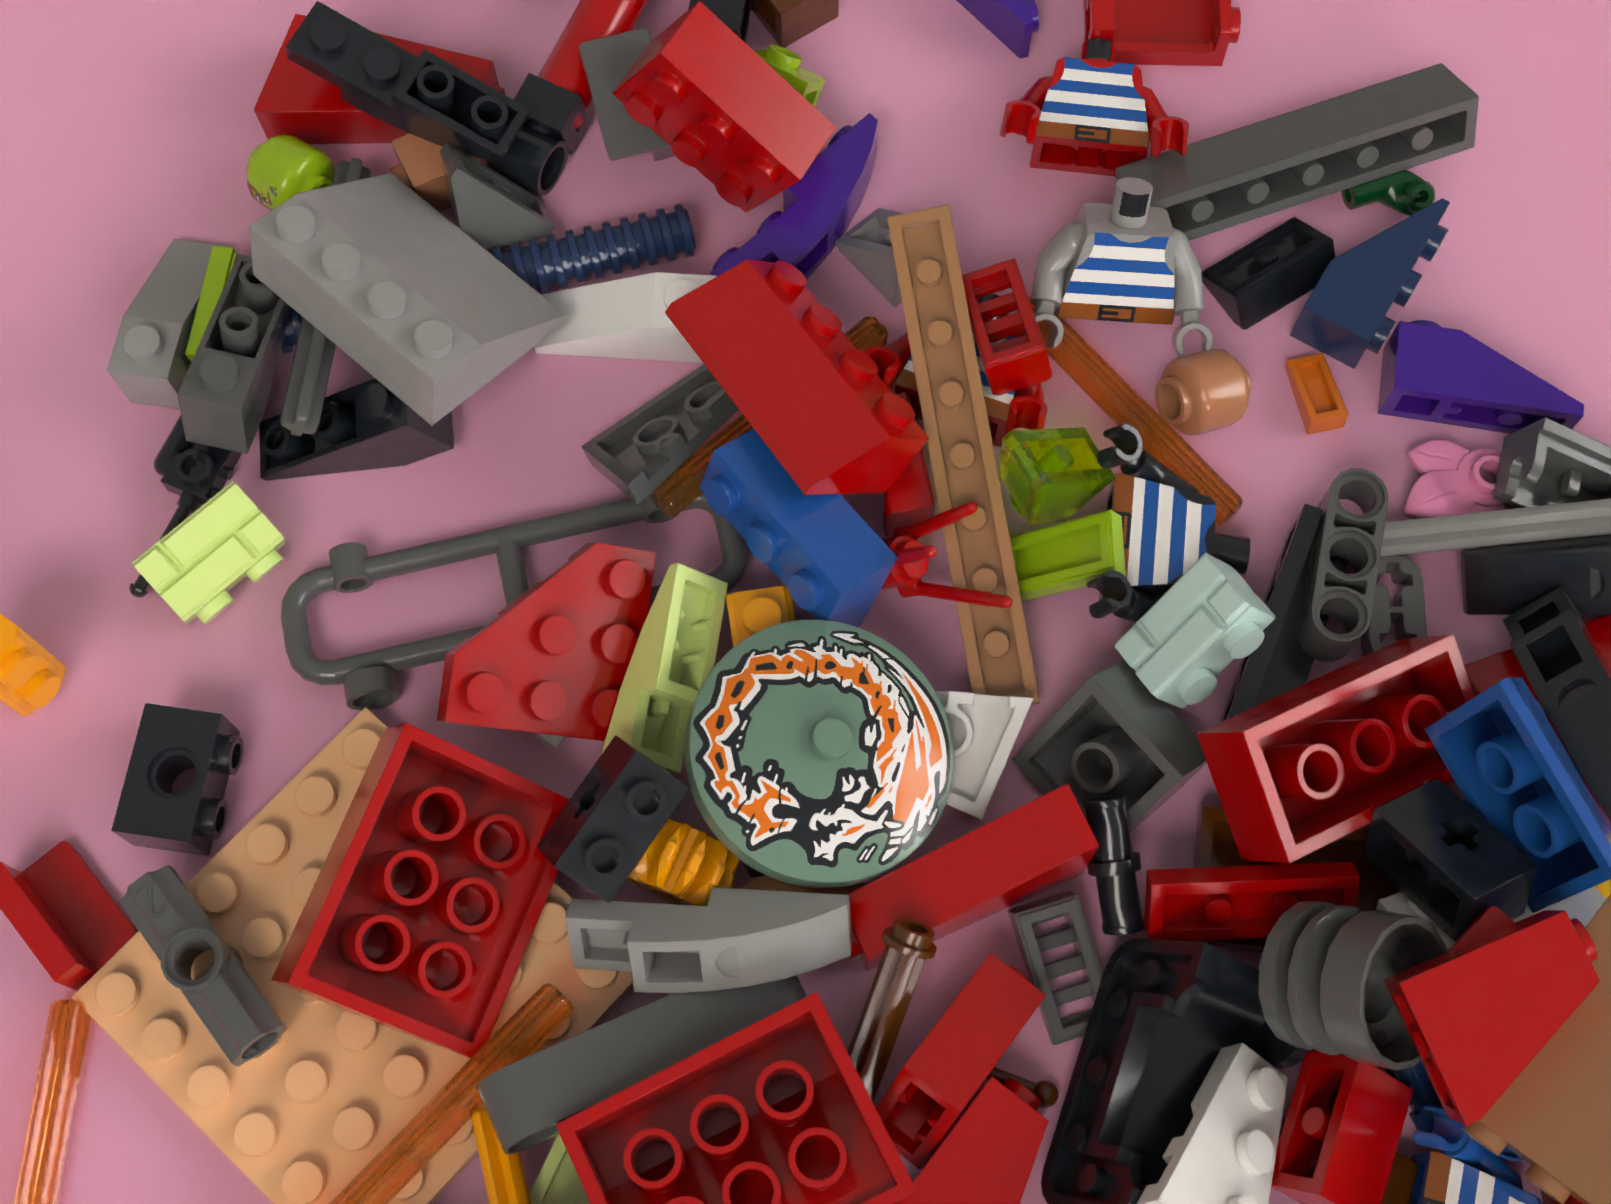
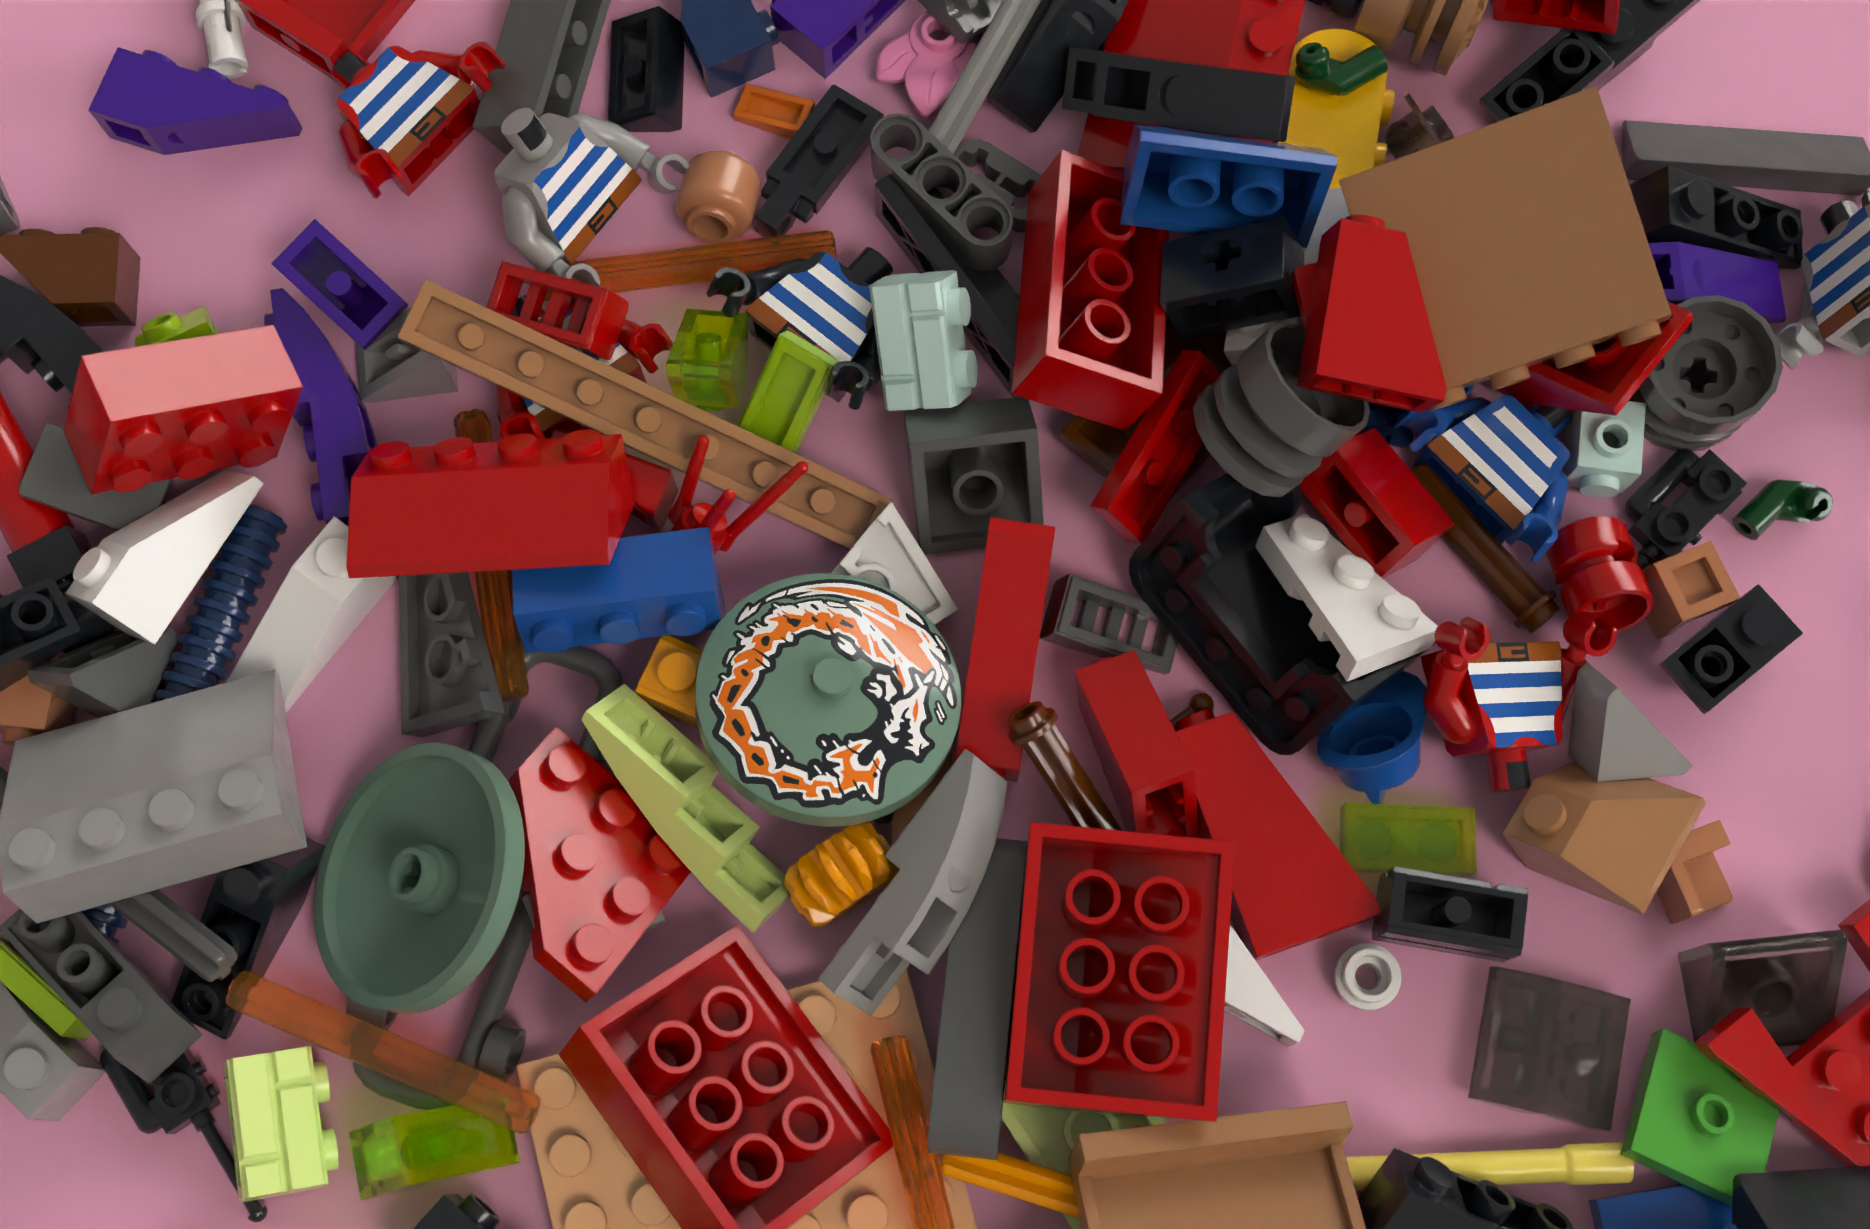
camera: 60 degrees left, 5 degrees up
(262, 686) = (428, 1150): none -> clear neon green slope
(312, 598) = (383, 1051): none -> clear orange axle
(462, 528) = (419, 878): none -> sand green dish
(592, 174) = (154, 563): none -> white slope
(612, 819) = (773, 903): black brick -> none
(911, 155) = (340, 284): none -> dark purple slope
(1114, 864) = (1071, 532): black pin -> none
(1293, 448) = (815, 161): none -> black hinge

